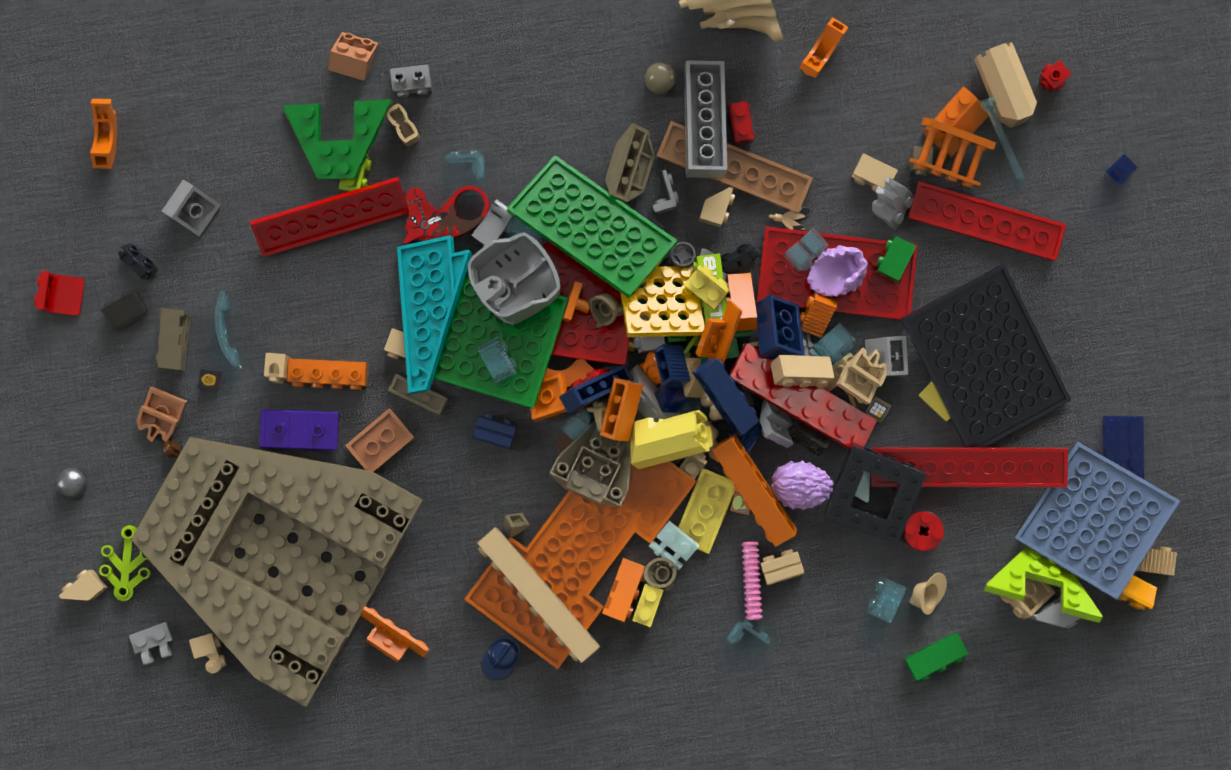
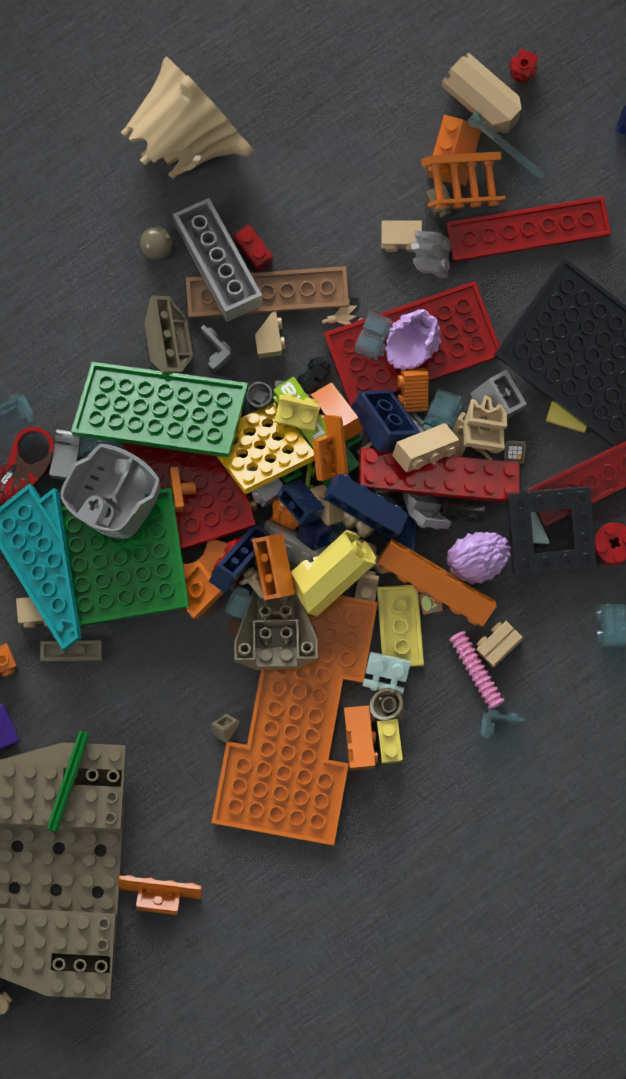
camera: 25 degrees left, 5 degrees down
(359, 507) = (68, 781): none -> green axle
(380, 441) = (56, 712): nougat plate -> none
(495, 432) = (162, 649): dark blue brick -> none
(497, 361) = (132, 578): clear light blue brick -> none
(501, 657) = (274, 862): dark blue piece -> none
(538, 594) = (280, 780): tan brick -> none
(606, 310) = (212, 480): dark tan helmet -> none
(823, 48) = (296, 142): orange arch -> none
(895, 258) = (460, 303): green brick -> none

